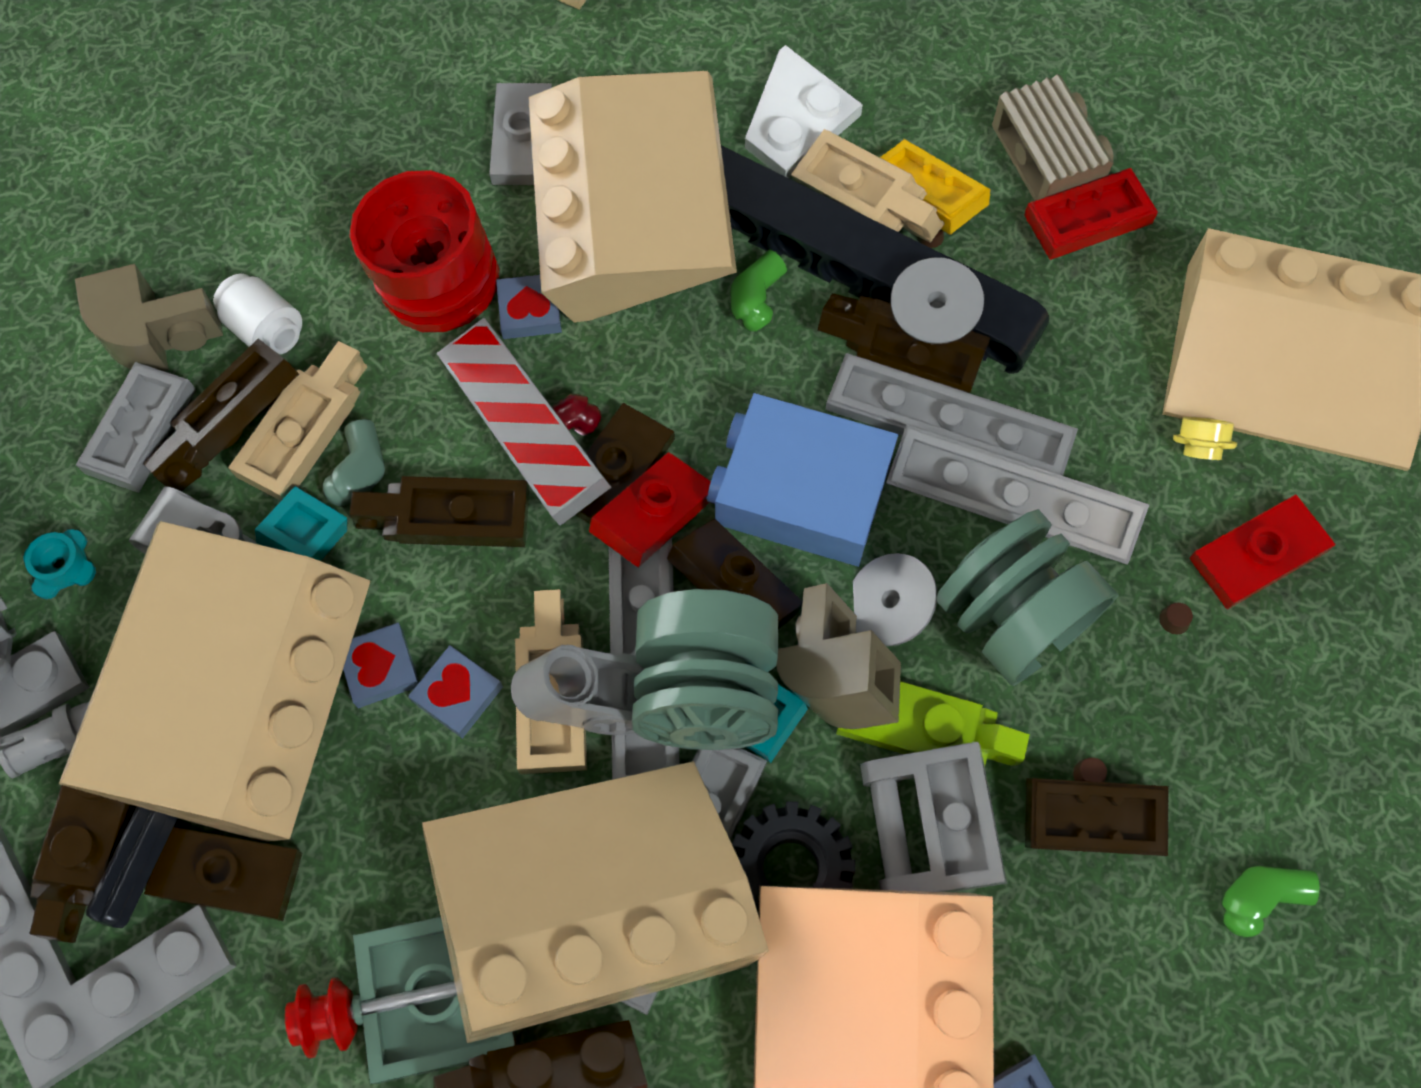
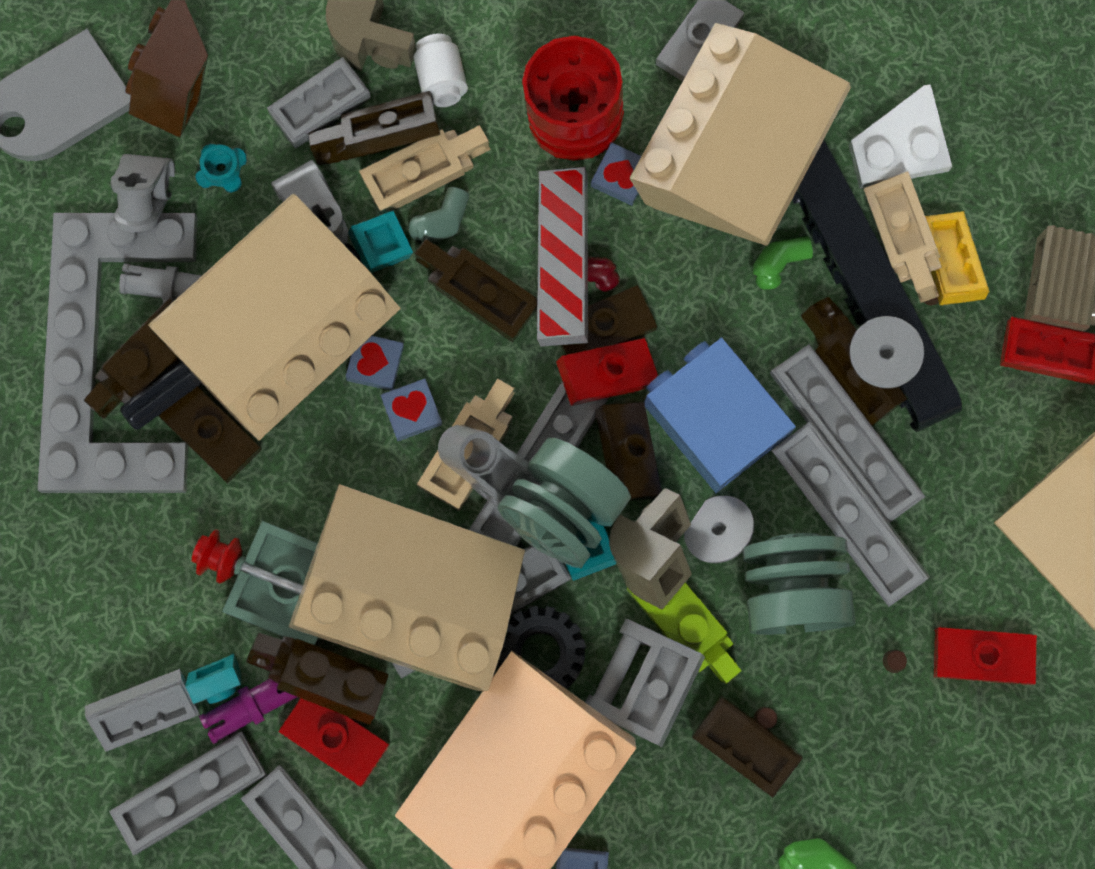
camera: 30 degrees right, 10 degrees up
(1205, 437) = (1006, 558): light yellow plate -> none

